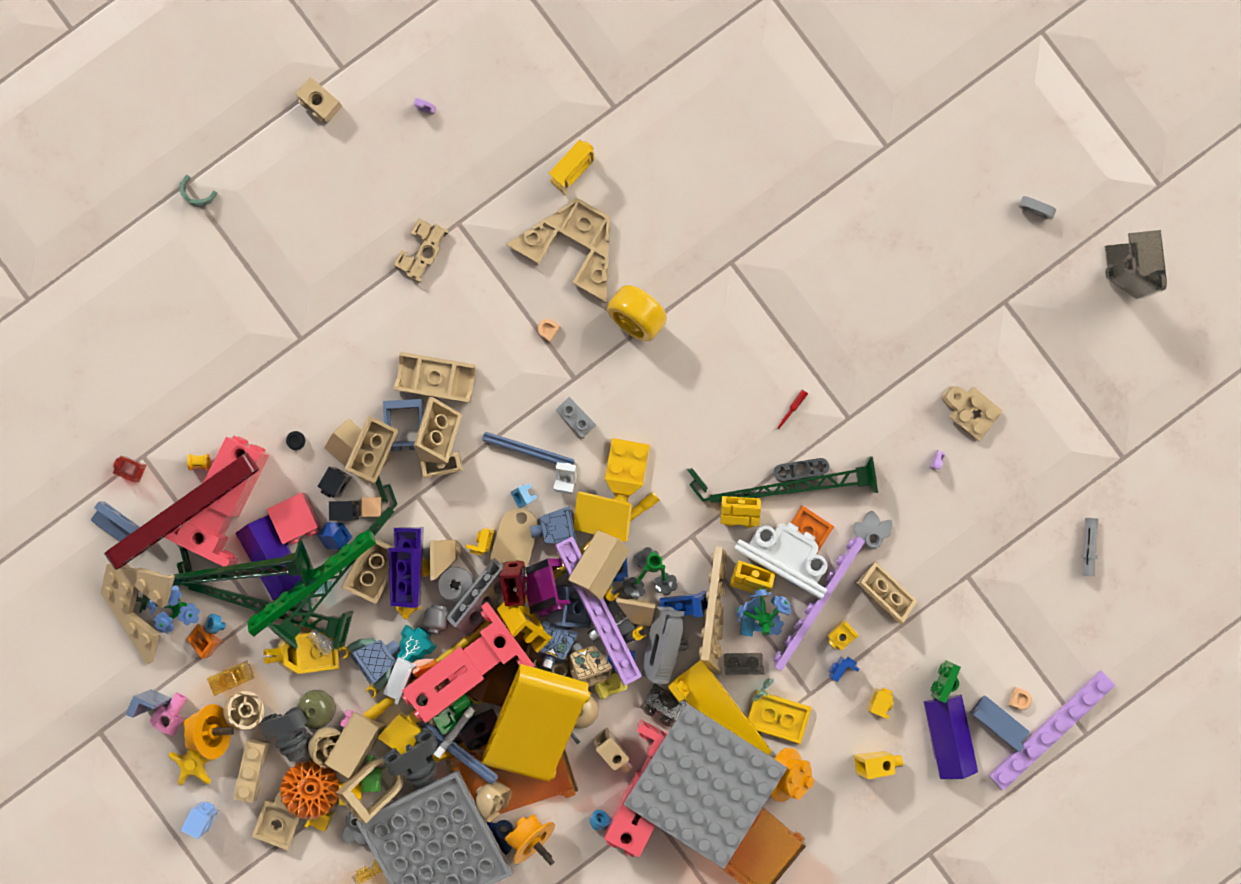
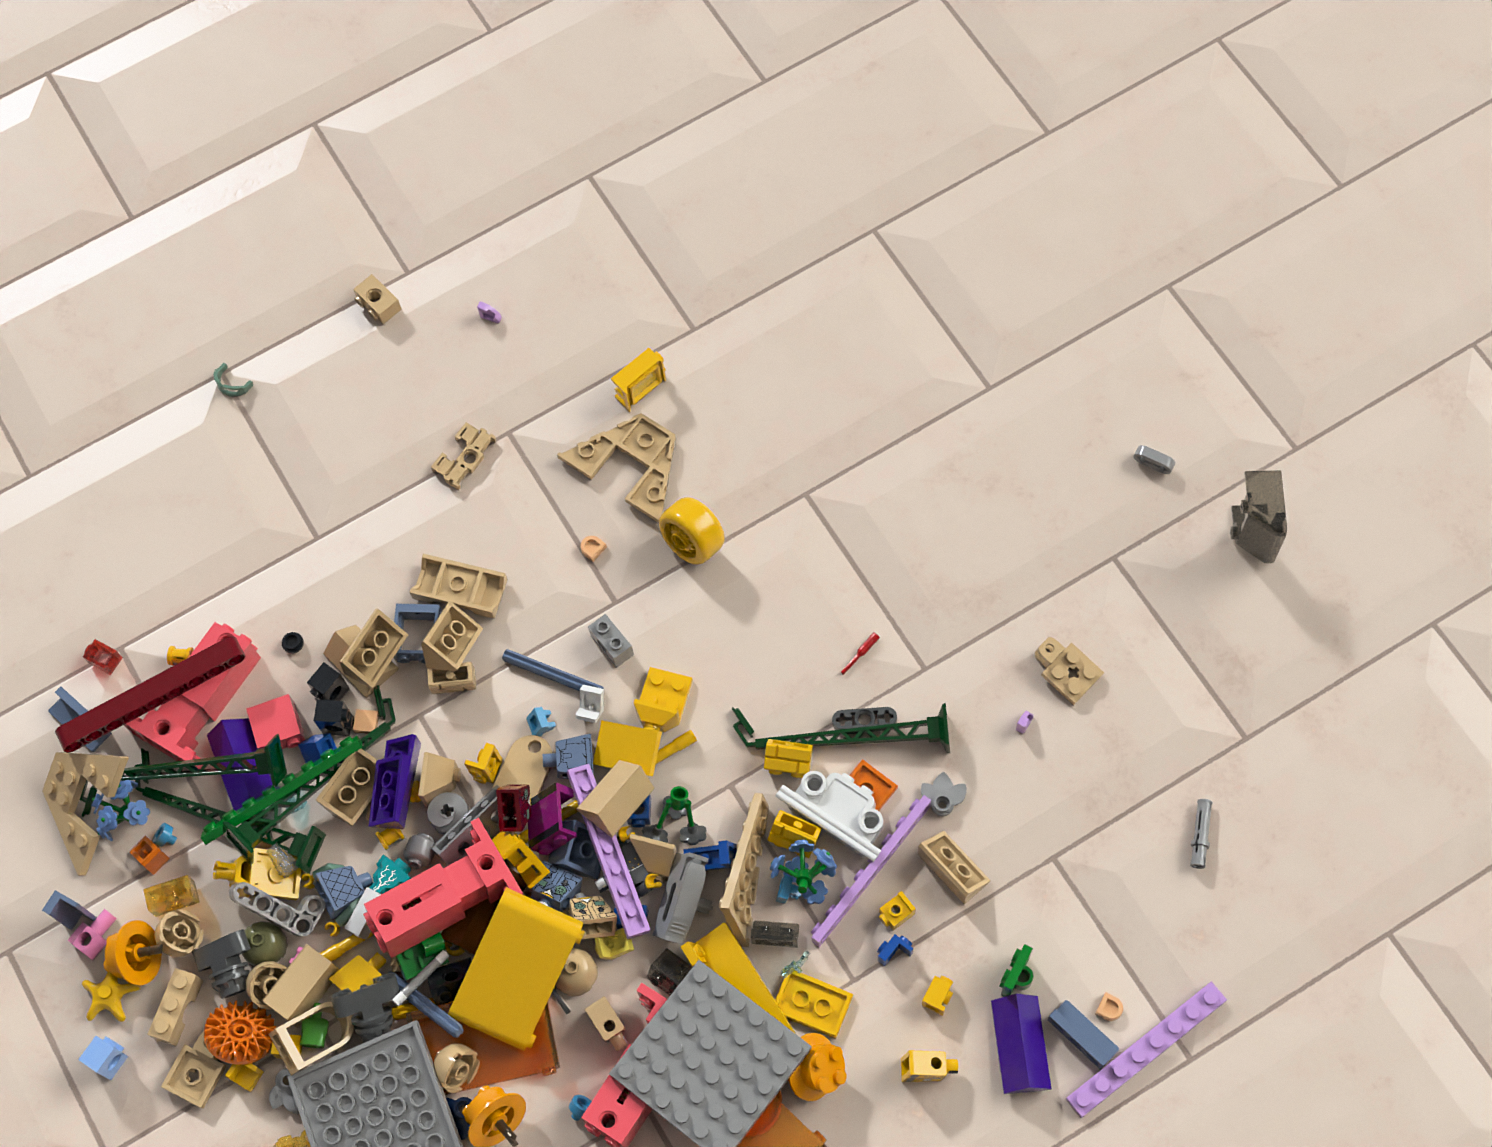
camera: 10 degrees right, 20 degrees down
(321, 682) = (273, 905): none -> light grey beam

